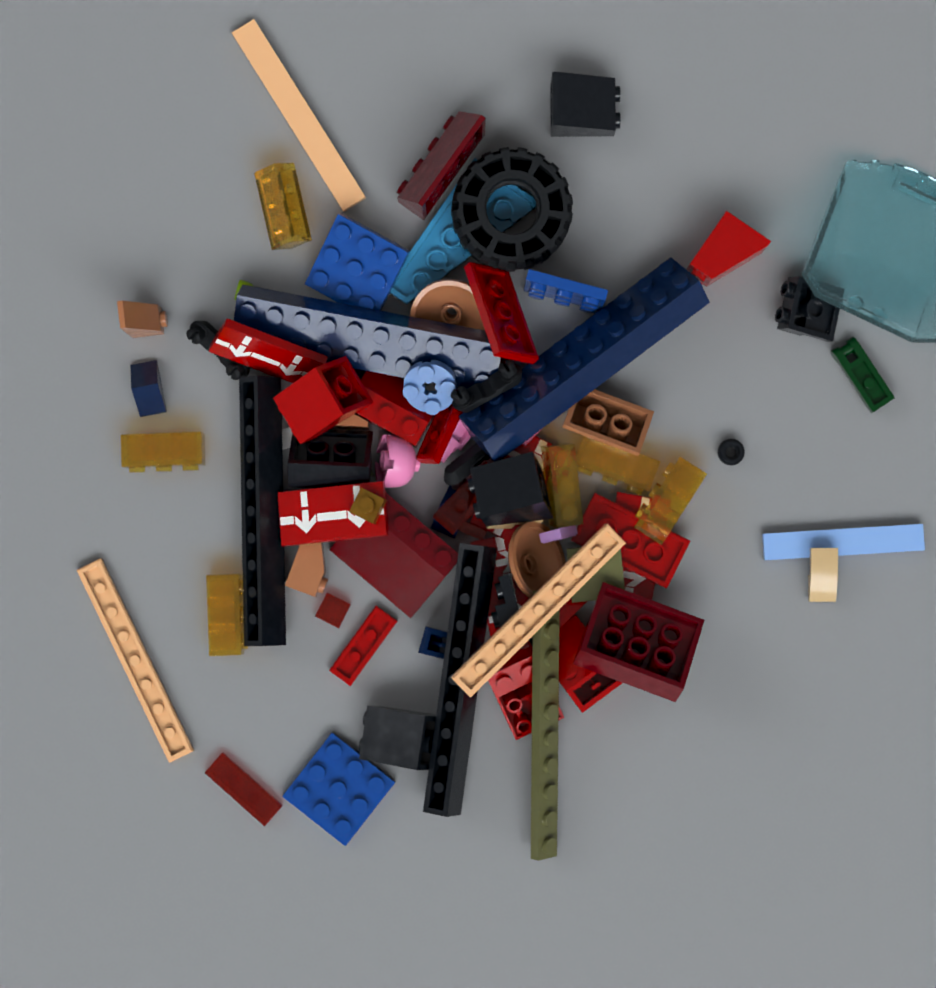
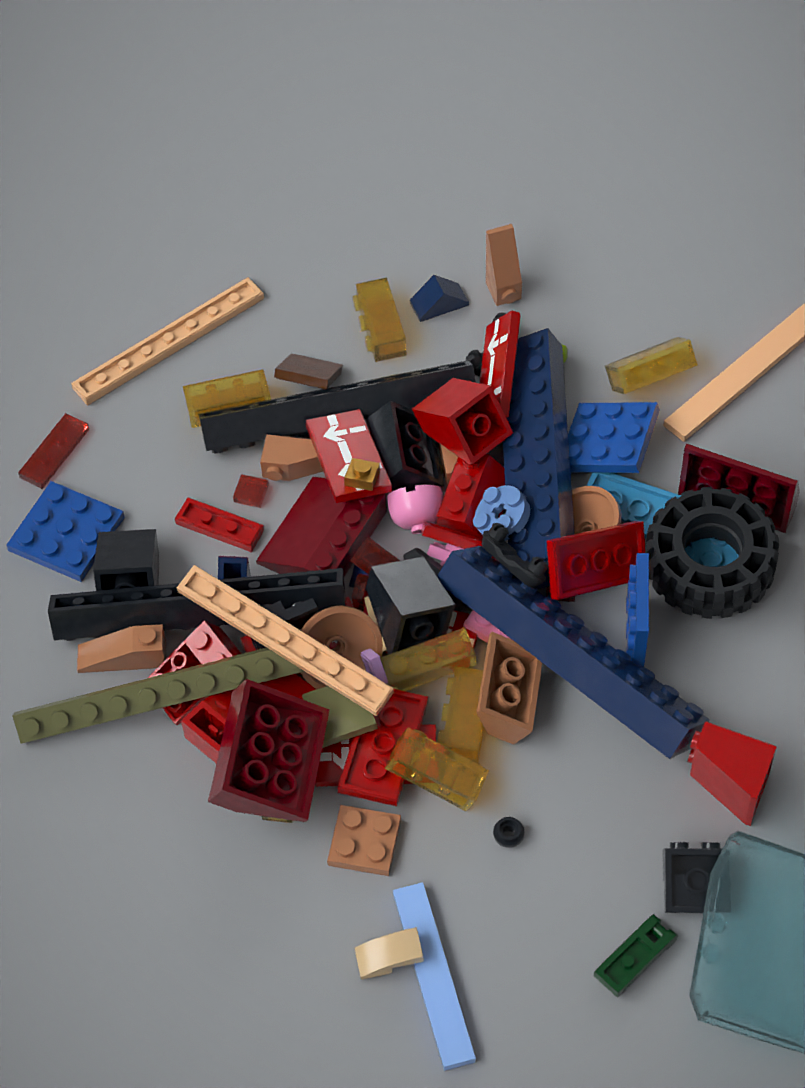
camera: 80 degrees right, 30 degrees down
(214, 532) = (308, 371): none -> reddish brown tile
(484, 755) = (124, 650): none -> nougat slope
(711, 574) = (364, 840): none -> nougat plate

